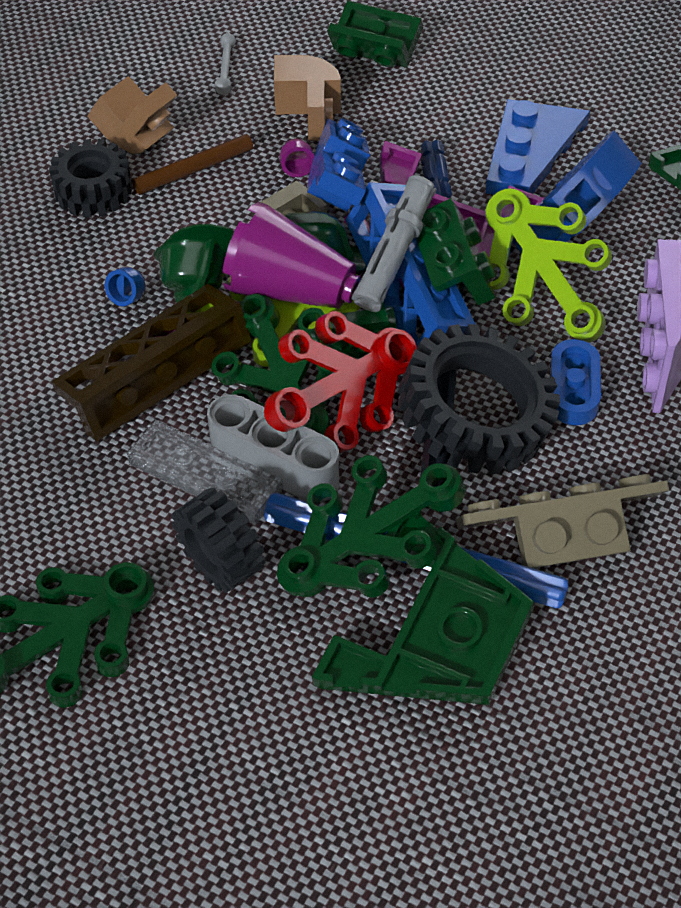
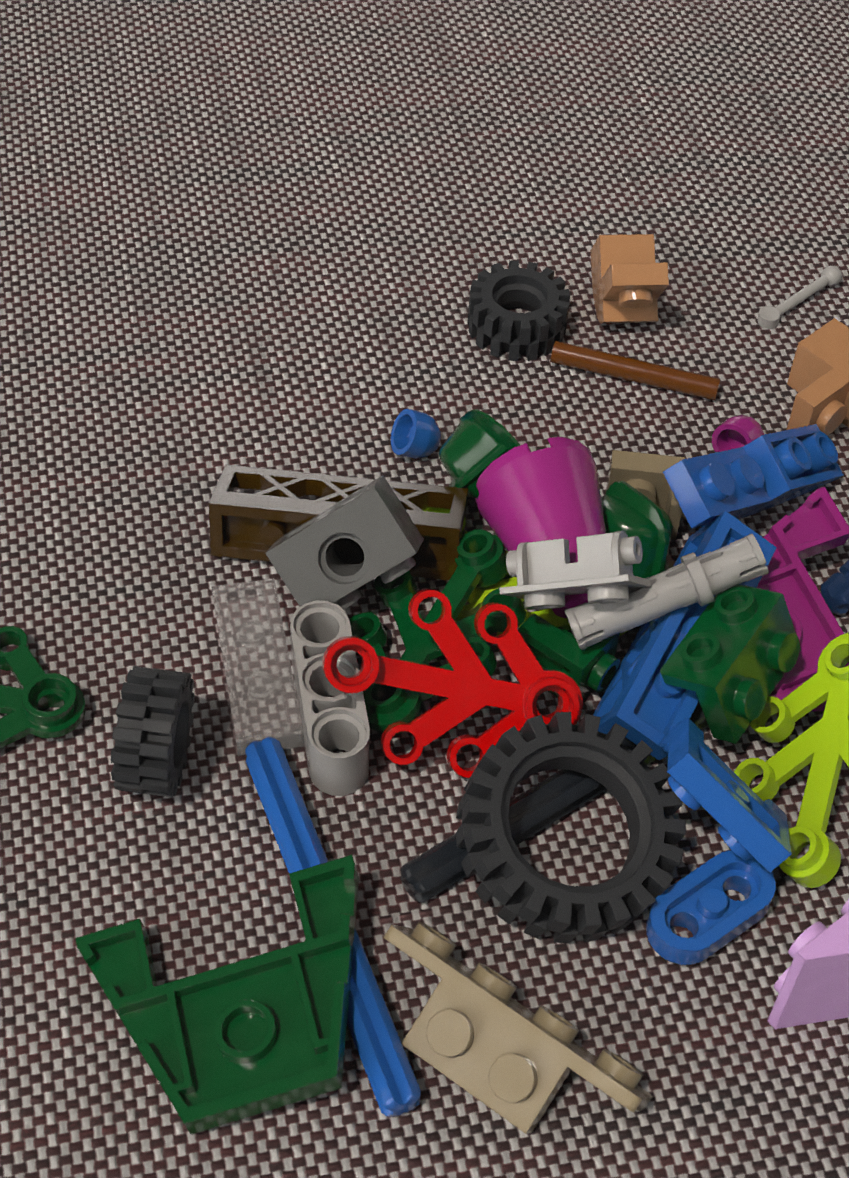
camera: 45 degrees right, 0 degrees up
(170, 373) = (369, 517): none -> dark grey brick
(362, 251) = (601, 571): none -> light grey hinge
(363, 532) = (211, 833): dark green plant -> none
(529, 318) = (705, 781): none -> blue plate

